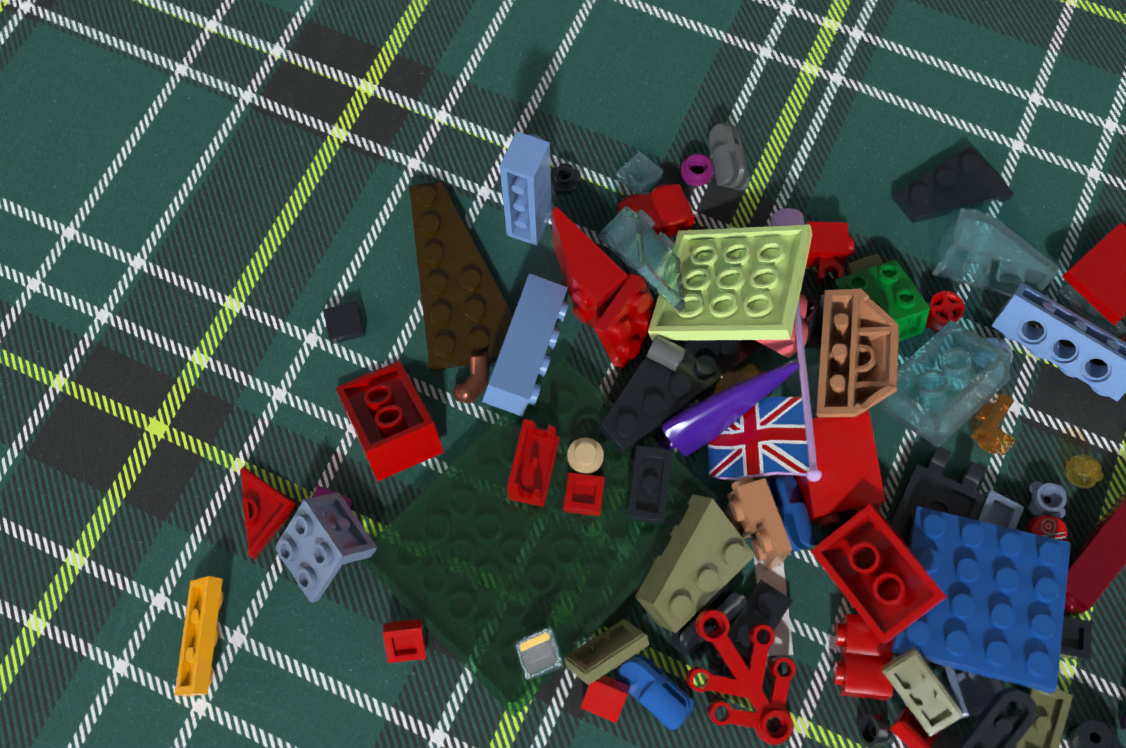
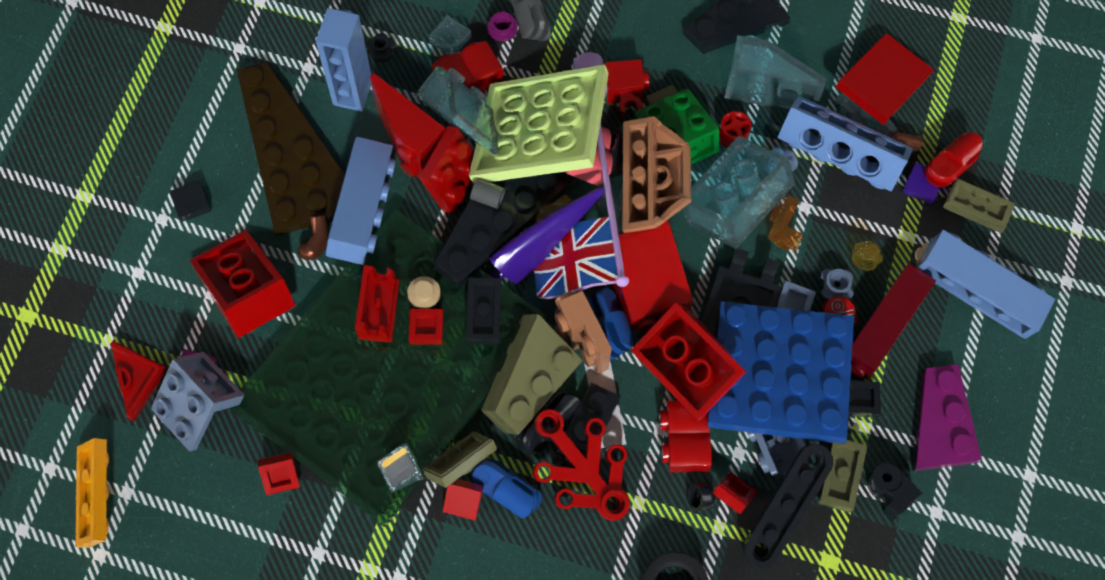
camera: 10 degrees left, 0 degrees up
(922, 691) = (735, 456): plate -> none

